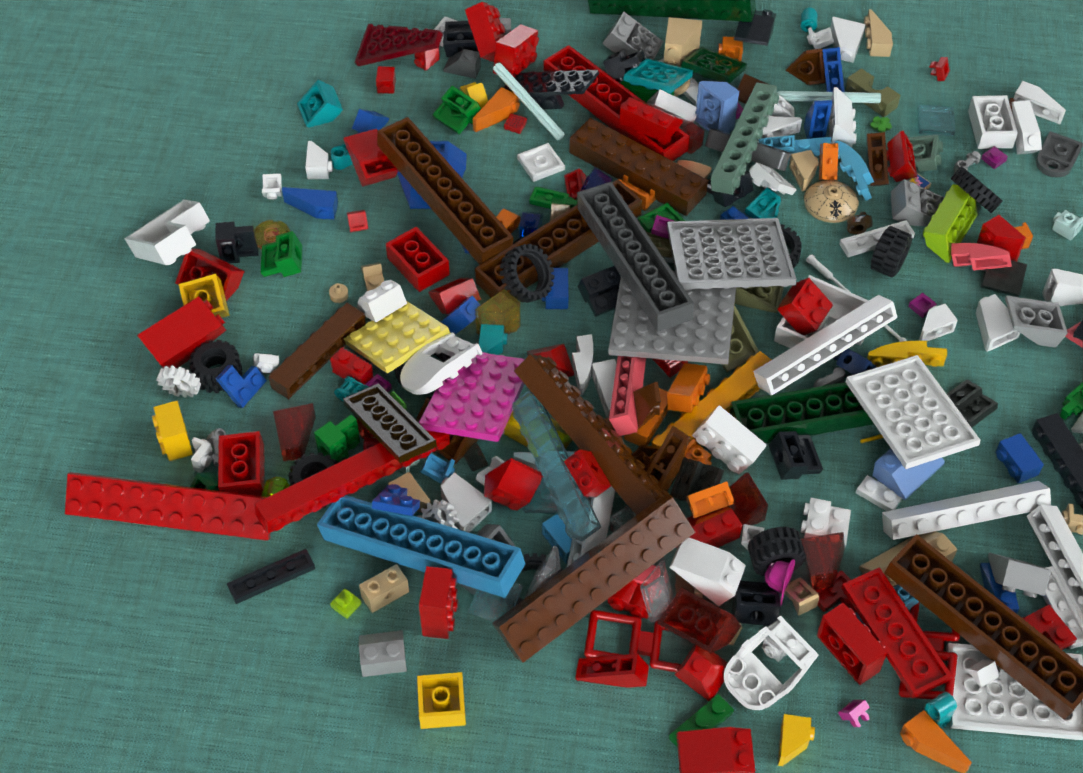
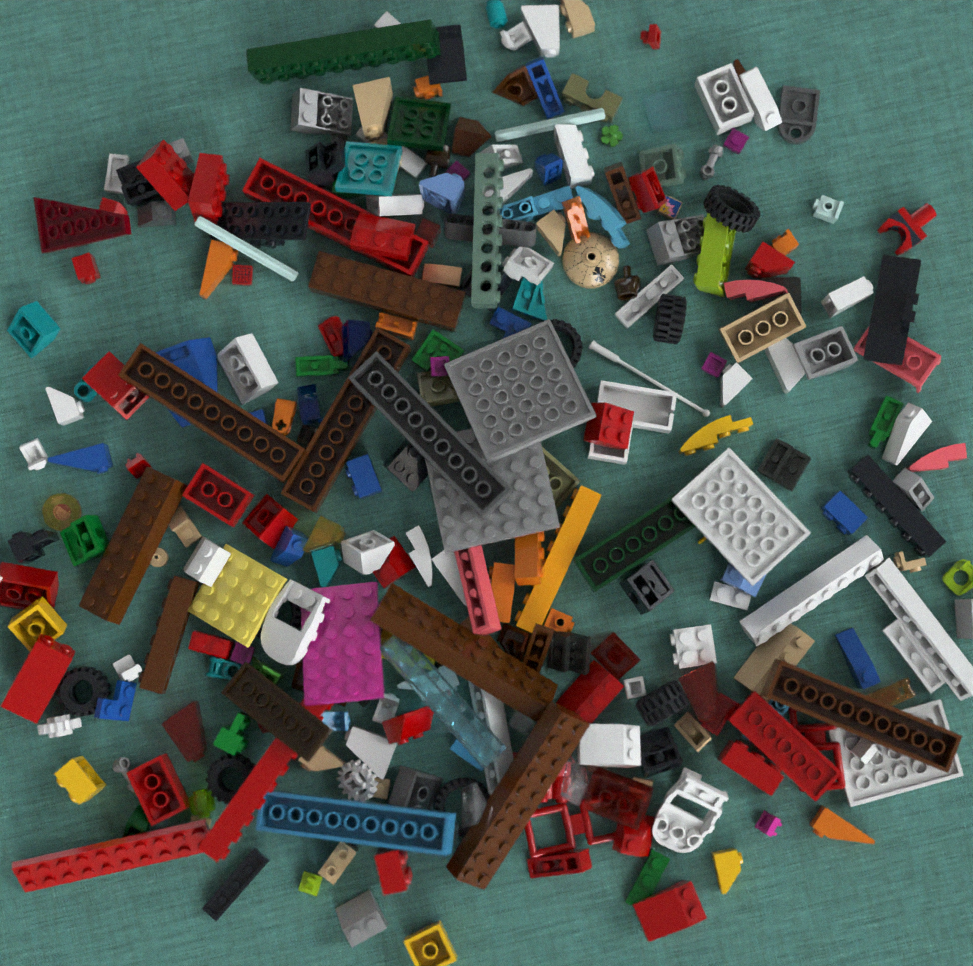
camera: 15 degrees left, 30 degrees up
(202, 457) = (119, 790): white bracket -> none
(320, 271) = (132, 546): none -> reddish brown brick
(369, 120) = (95, 332): blue slope -> none
(395, 500) = (312, 789): blue plate -> none
(456, 110) = (178, 285): green brick -> none
(476, 92) = (187, 254): yellow slope -> none
(489, 180) = (247, 368): none -> white slope
(531, 337) = (366, 551): none -> white slope
(540, 162) = (287, 317): white tile -> none
(543, 270) = (352, 489): black tyre -> none
(558, 209) = (332, 381): tan tile -> none
(587, 473) = (475, 701): red brick -> none
(647, 403) = (500, 598): reddish brown slope -> none
(710, 499) = (586, 670): orange hinge -> none
(729, 440) = (585, 605): white brick -> none
(779, 576) = (670, 730): dark pink piece -> none
(825, 344) = (641, 466): white brick -> none
(834, 378) = (648, 497): light grey plate -> none
(853, 362) = (673, 468): dark blue torso -> none
(941, 709) = (837, 802): teal piece -> none
(978, 281) = (762, 327): none -> tan slope
(1019, 575) = (872, 646): light grey slope -> none
(1041, 102) = (758, 48): white slope -> none
(1051, 626) = (904, 683): red plate -> none

